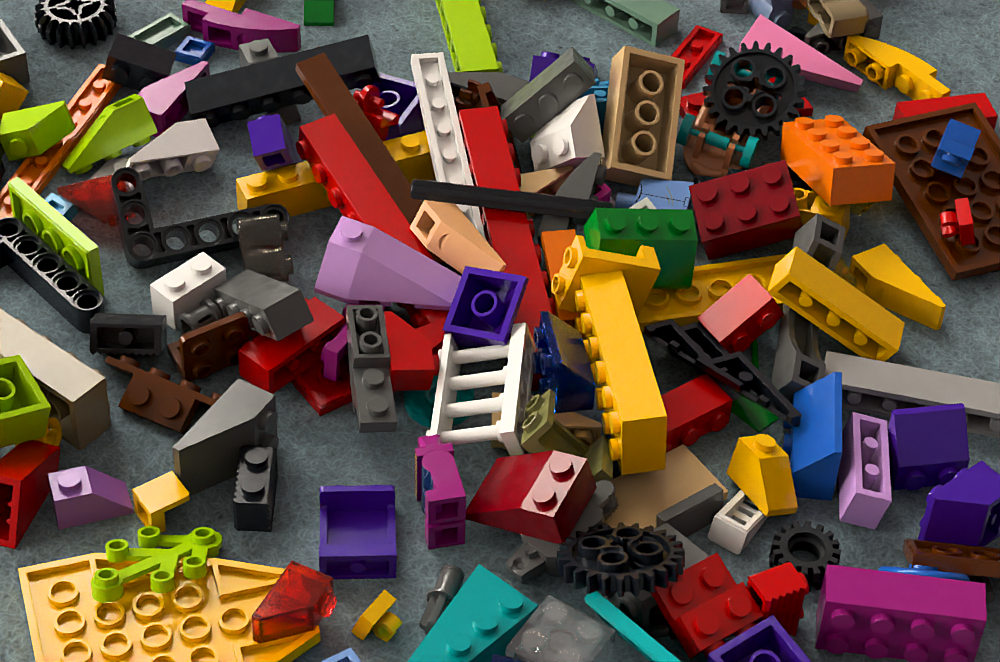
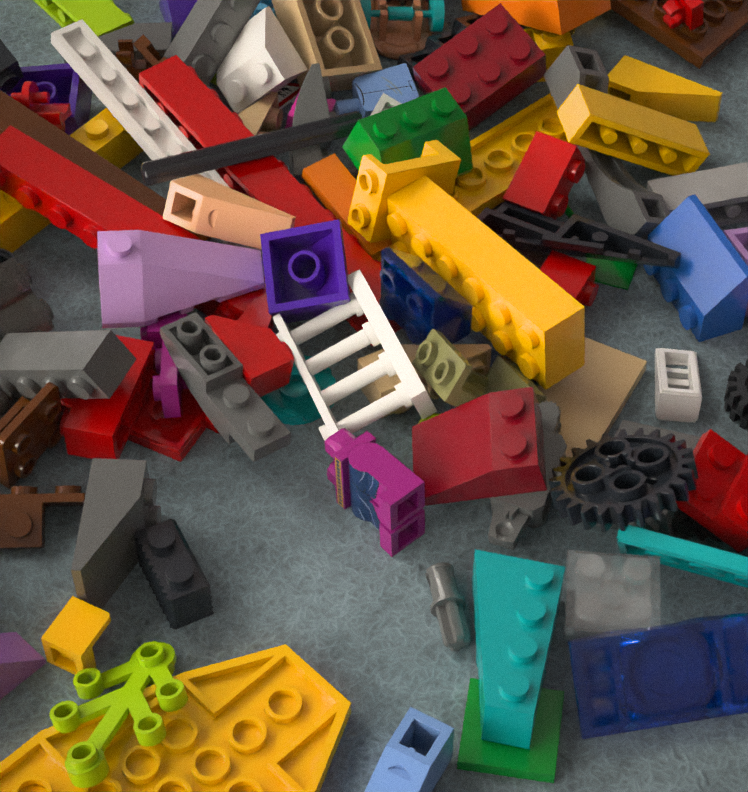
camera: 25 degrees left, 5 degrees up
(294, 604) = (313, 684): clear red slope -> none
(357, 532) = (312, 573): dark purple panel -> none
(378, 619) = (399, 658): yellow tile -> none
(693, 512) = (633, 396): dark grey tile -> none
(764, 474) = (675, 329): yellow slope -> none

